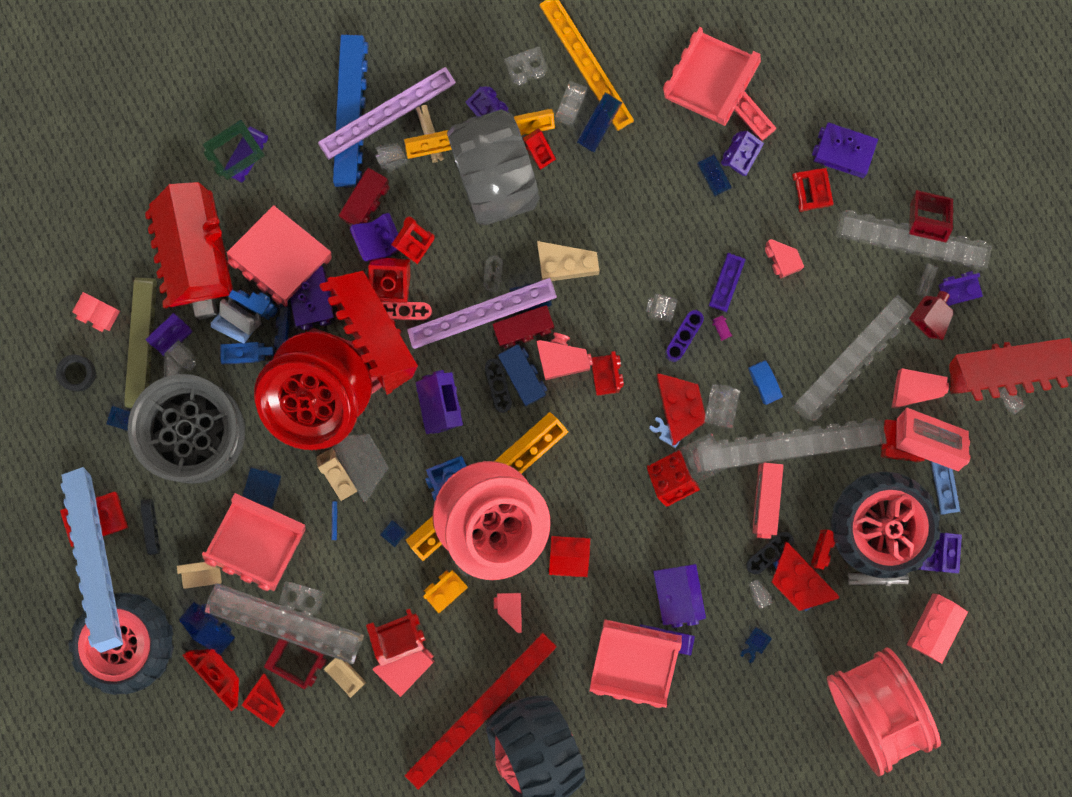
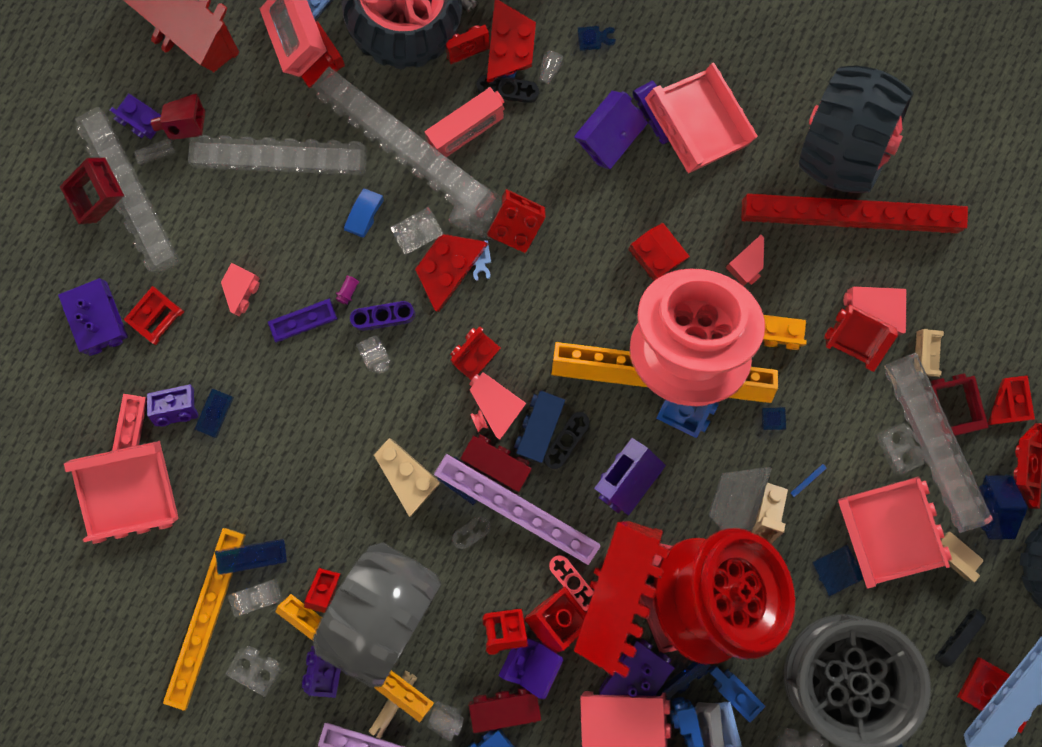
camera: 135 degrees left, 0 degrees up
(917, 387) = (258, 81): coral slope -> none

